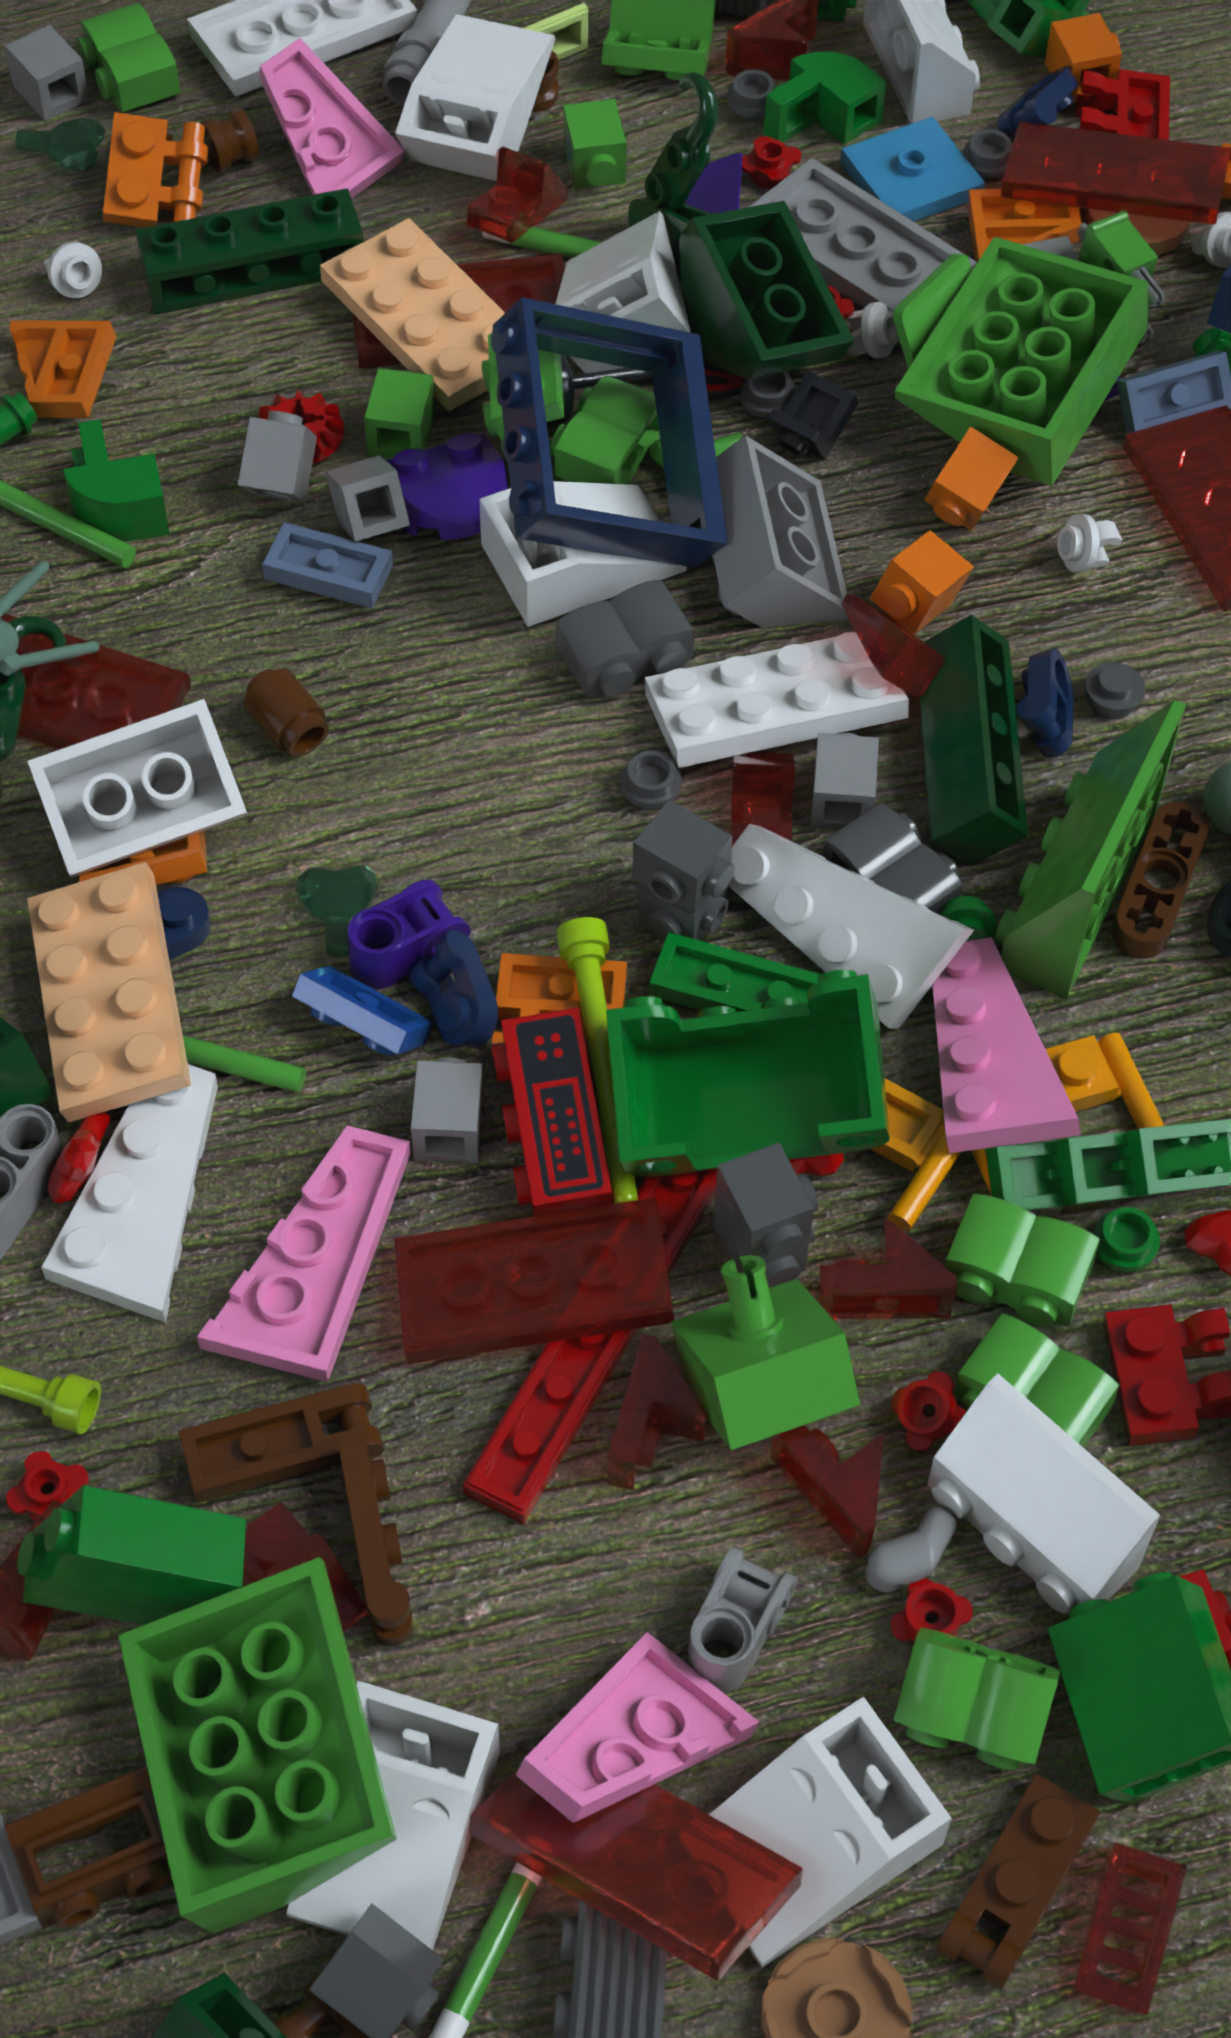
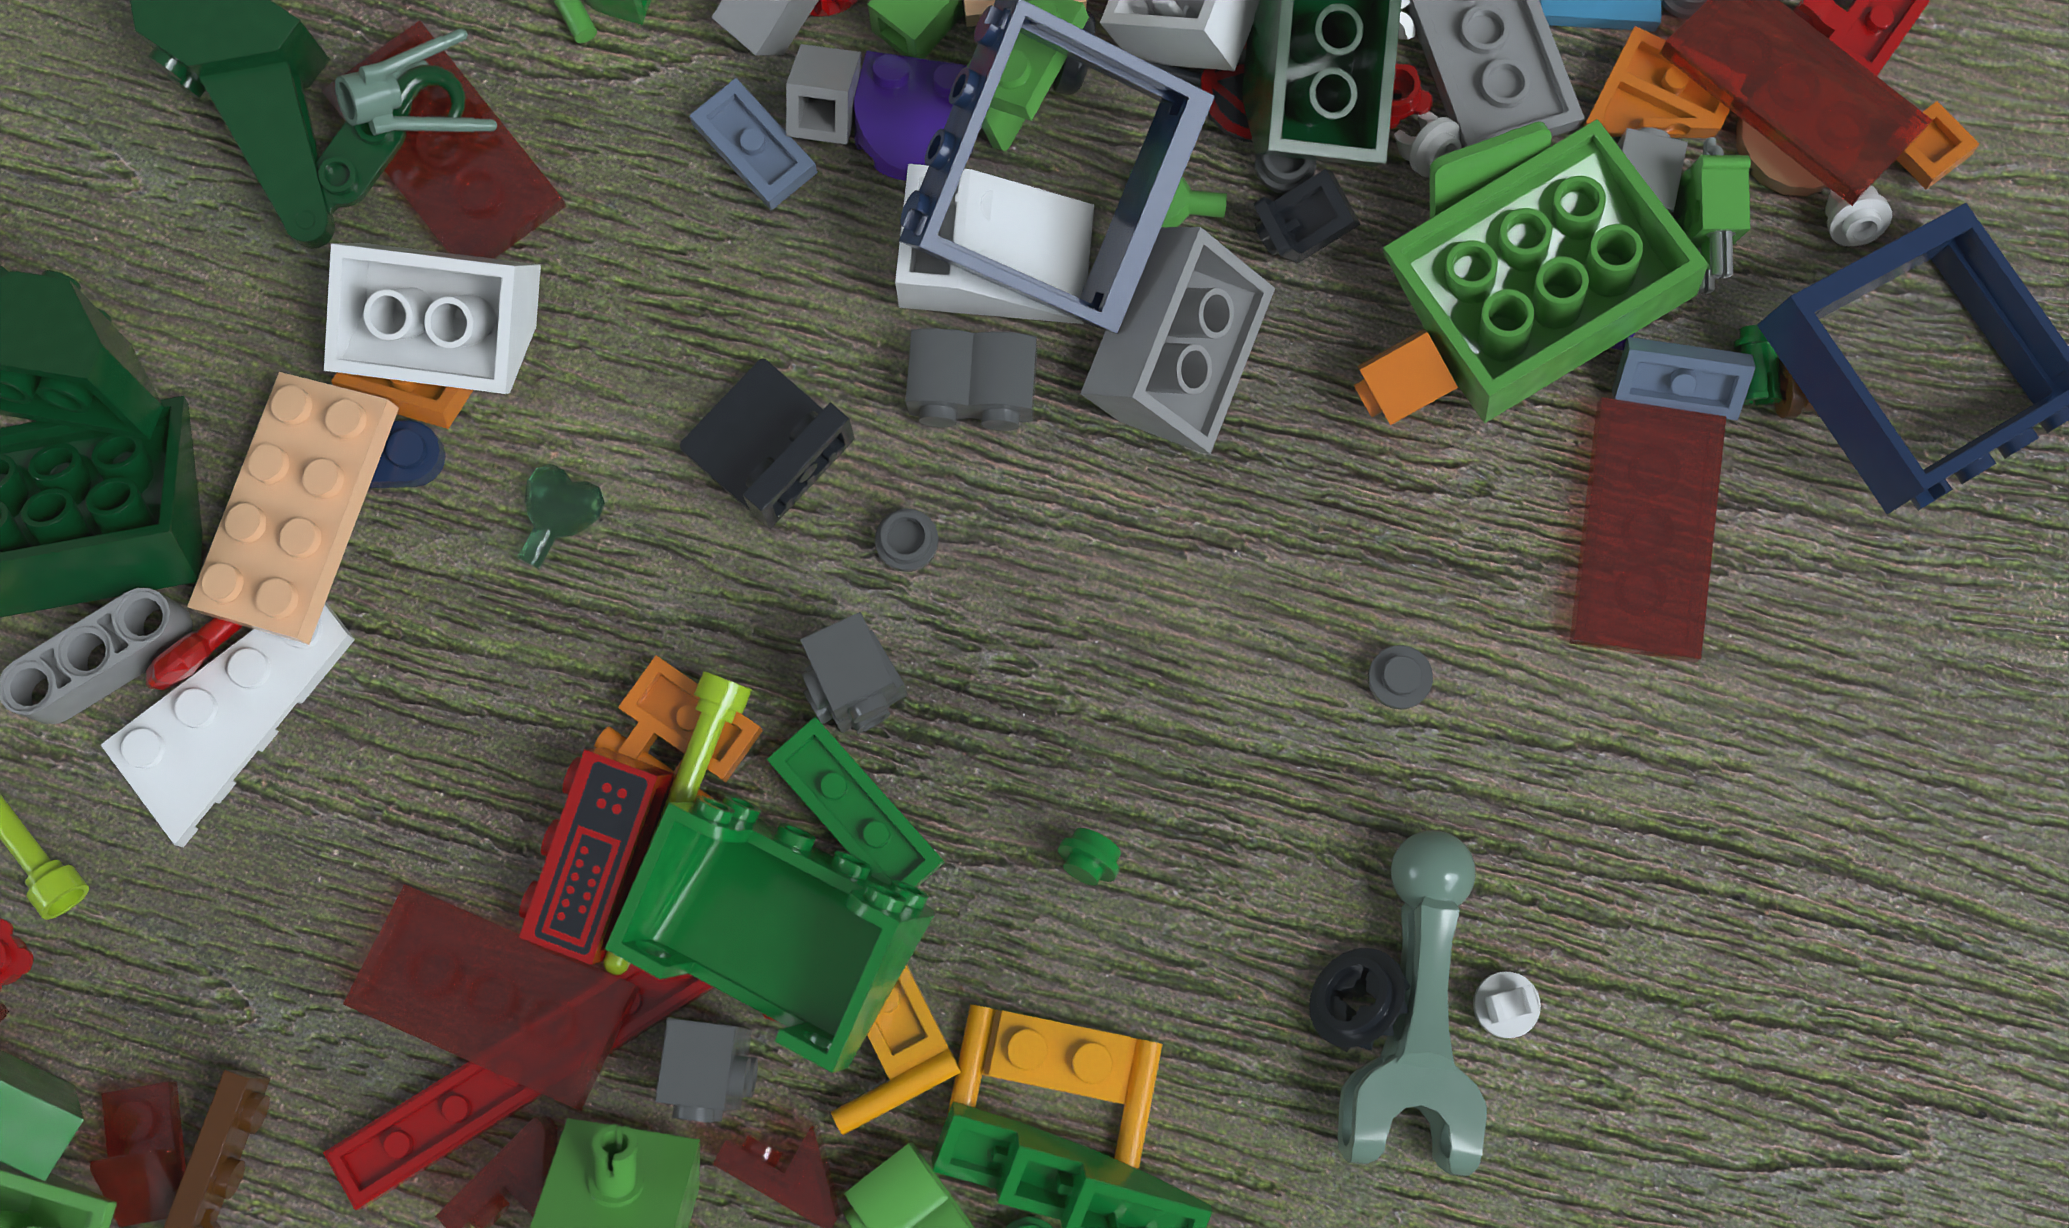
camera: 30 degrees right, 20 degrees up
(244, 1064) = (379, 630): bright green bar -> none
(276, 1441) = (196, 1024): reddish brown plate -> none
(286, 712) = (621, 288): reddish brown brick -> none
(310, 1275) = (303, 887): bright pink wing -> none
(348, 1002) = (506, 642): blue plate -> none
(404, 928) = (592, 583): dark purple piece -> none
(447, 1111) = (518, 786): light grey brick -> none
(464, 1008) = (597, 672): dark blue plate -> none
(488, 763) = (767, 442): none -> black bracket
(607, 435) = (1091, 138): bright green brick -> none
(762, 793) = (994, 615): clear red slope -> none
(771, 699) = (1072, 516): white plate -> none
(843, 779) = (1077, 641): light grey brick -> none
(846, 920) = (981, 819): white wing -> none
(890, 853) = (1059, 764): dark grey brick -> none
(893, 648) = (1203, 530): clear red slope -> none
(921, 582) = (1282, 468): orange brick -> none
(972, 745) = (1215, 669): dark green brick -> none
(991, 1059) = (1008, 1026): bright pink wing -> none
(1048, 702) = (1323, 662): dark blue plate -> none
(1083, 540) = (1475, 503): white plate -> none
(1088, 855) = (1237, 858): bright green slope -> none
(1164, 901) = (1355, 888): reddish brown beam -> none

